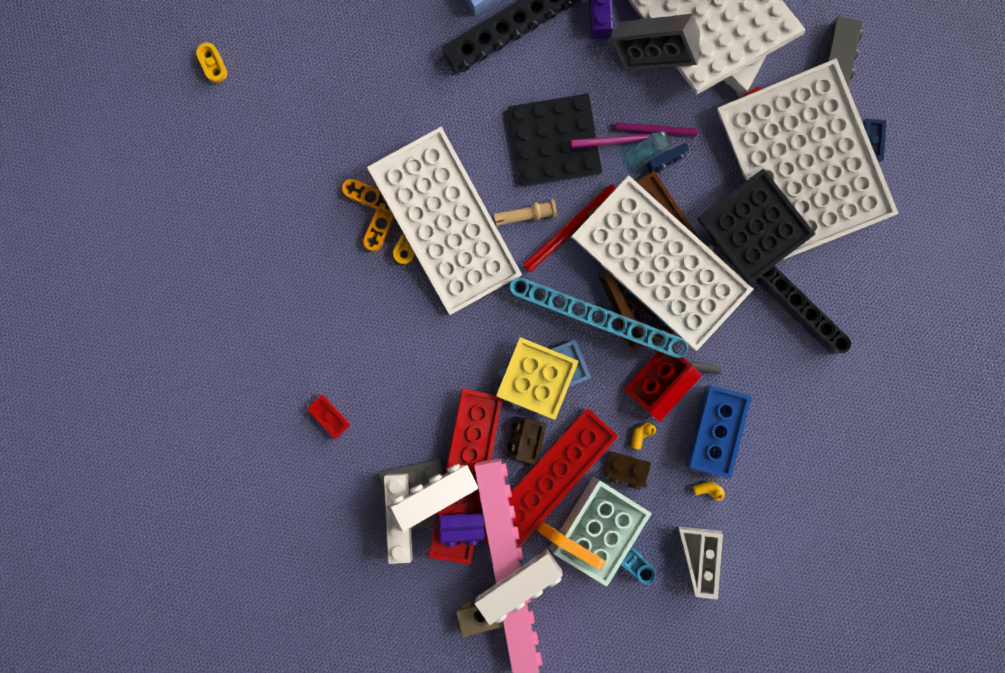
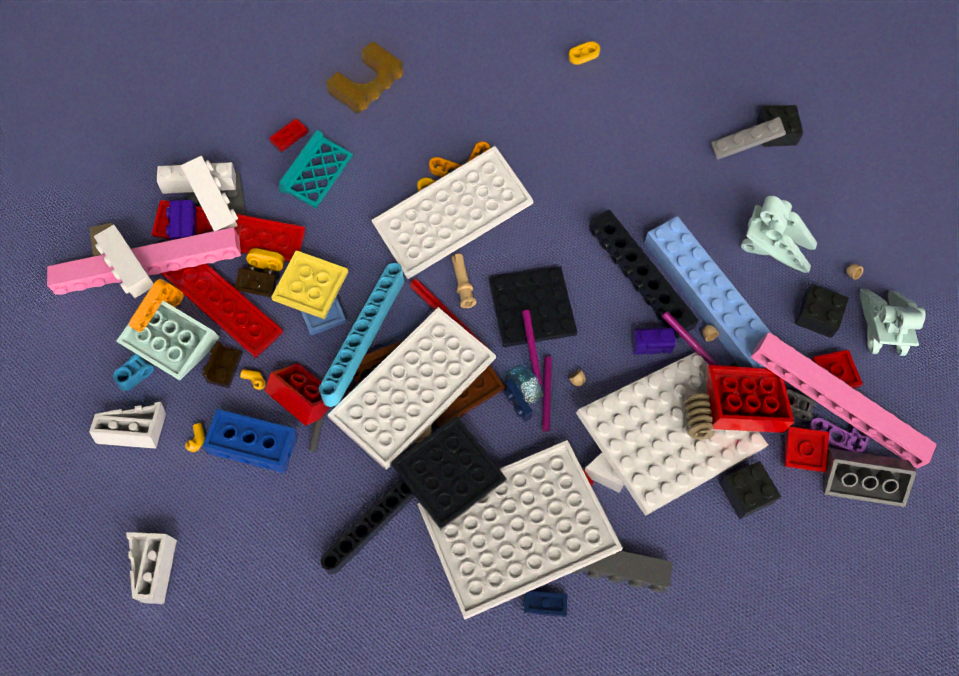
camera: 90 degrees right, 20 degrees down
(273, 336) = (359, 96): none -> clear yellow arch
(371, 398) = (304, 159): none -> teal fence
(502, 425) = (265, 259): none -> yellow plate
(637, 93) = (577, 378): none -> tan hinge
(657, 42) = (624, 377): dark grey slope -> none
(845, 521) = (150, 565): none -> white wedge

